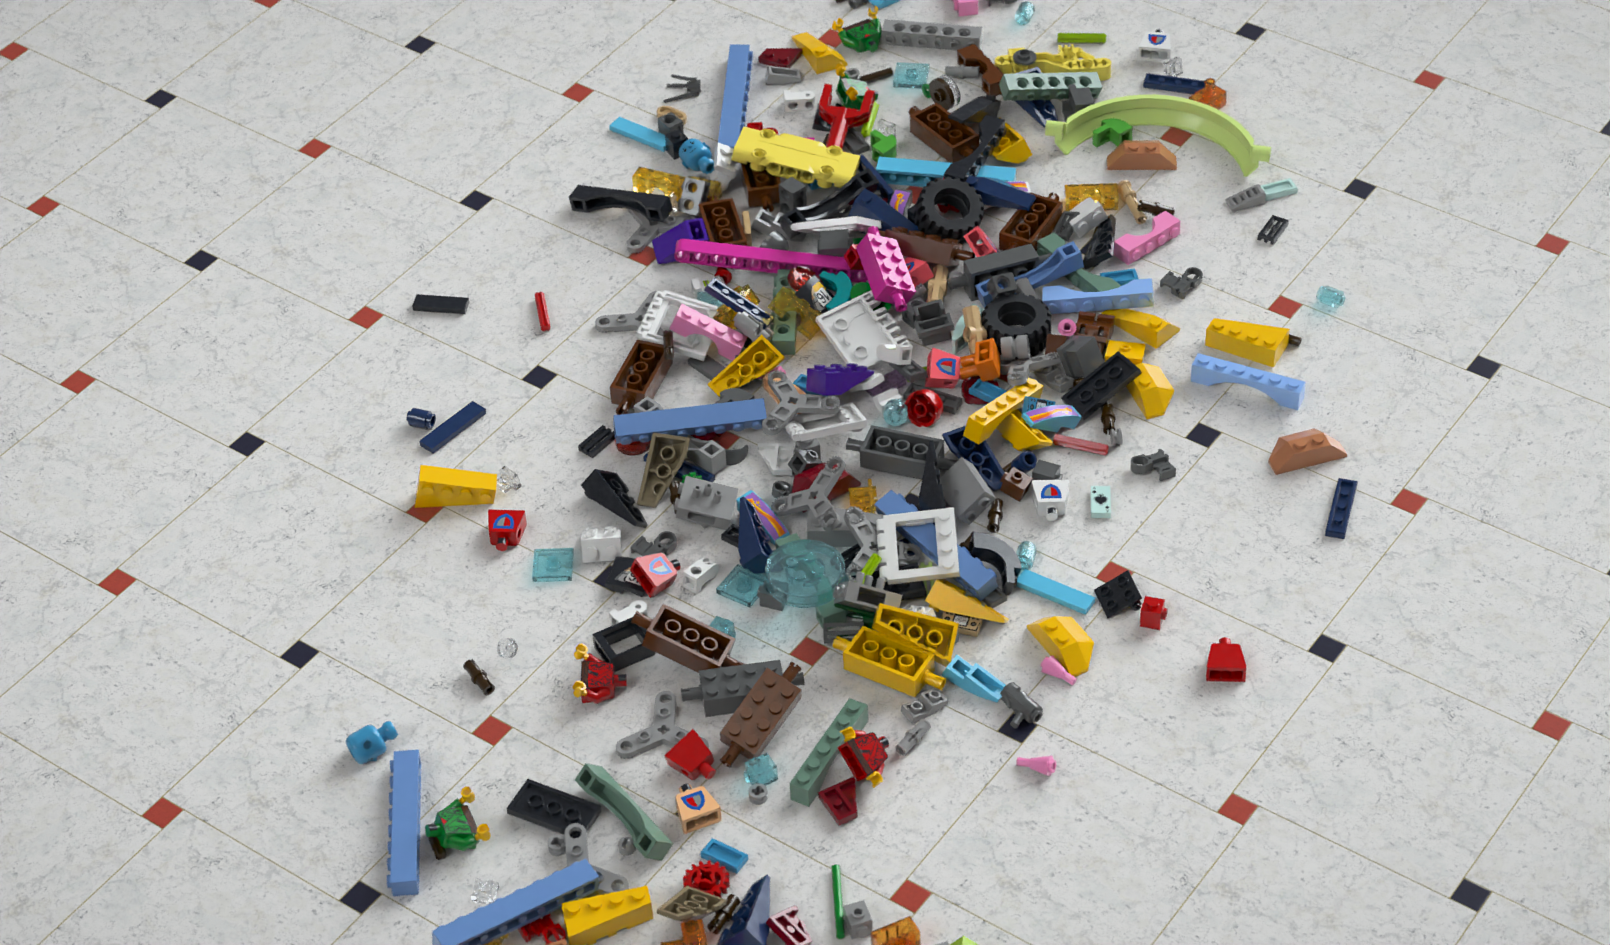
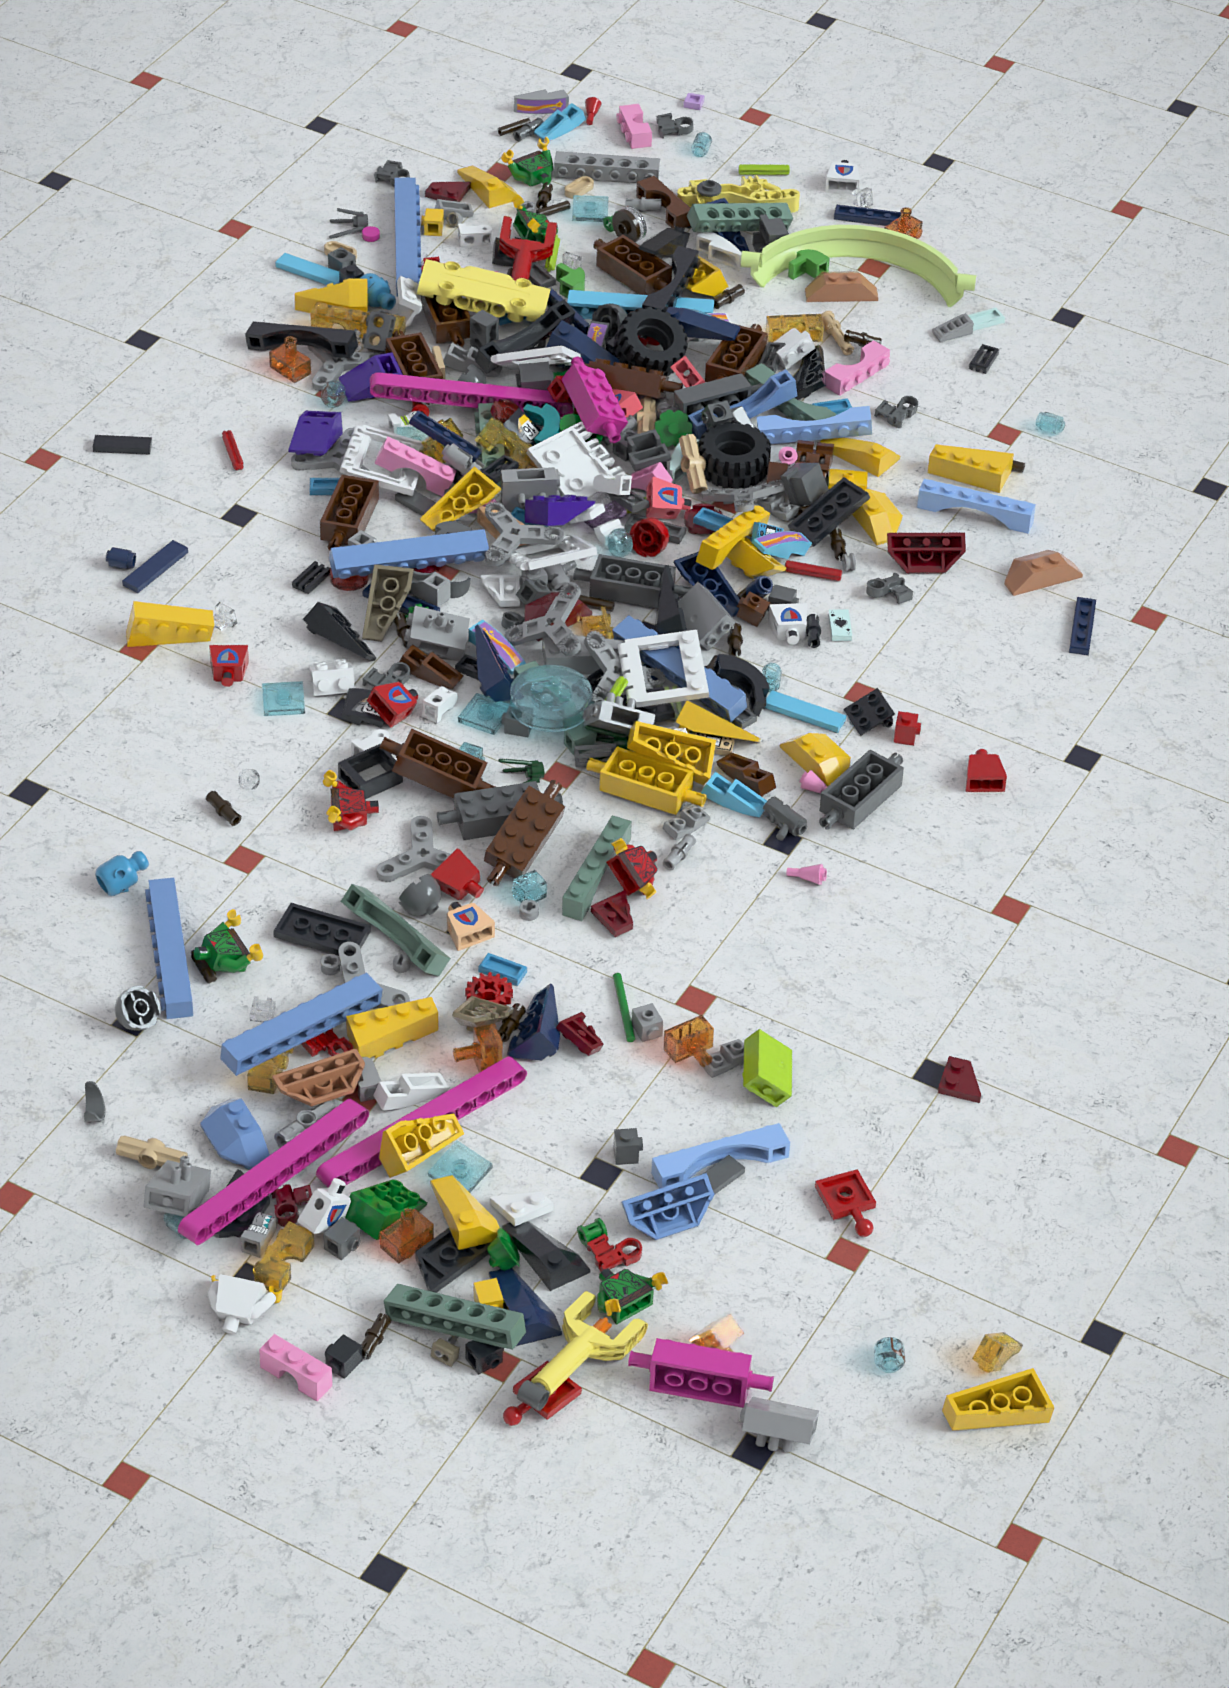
camera: 10 degrees left, 0 degrees up
(363, 886) = (137, 1008): none -> dark grey cylinder
(608, 224) = (289, 361): none -> clear orange brick
(620, 296) = (316, 432): none -> dark purple slope
(620, 349) = (323, 486): none -> dark azure tile
(643, 257) = (333, 394): none -> clear light blue head
(654, 778) = (421, 897): none -> dark grey cylinder
(668, 344) = (376, 478): dark brown axle -> none
(671, 159) = (348, 294): none -> yellow wedge
(697, 537) = (431, 668): none -> reddish brown slope
(702, 98) = (370, 234): none -> dark pink tile
(728, 37) = (391, 170): none -> dark grey piece
(761, 87) = (433, 222): none -> yellow brick
(781, 645) = (533, 769): none -> dark green plant
(782, 84) = (454, 219): none -> light grey hinge
(789, 338) = (498, 466): none -> black tile
(807, 352) = (524, 483): none -> light grey piece
(831, 445) = (558, 575): none -> light grey piece
(864, 473) = (597, 603): none -> dark brown piece
(869, 62) = (544, 195): none -> dark brown pin
(904, 53) = (579, 186): none -> tan tile
(915, 182) = (610, 314): none -> dark grey cylinder
(924, 346) = (641, 478): none -> bright pink arch
(960, 296) = (672, 427): none -> green plant
(983, 362) = (705, 491): orange brick -> none
(990, 656) = (748, 773): none -> reddish brown slope
(1015, 347) = (737, 476): light grey wheel -> none
(1027, 116) = (718, 249): none -> white slope
(1031, 164) = (731, 294): none -> dark brown pin
(1073, 507) = (813, 630): none -> black pin
(1099, 677) = (861, 789): none -> dark grey brick
(1192, 427) = (926, 551): none -> dark red wedge

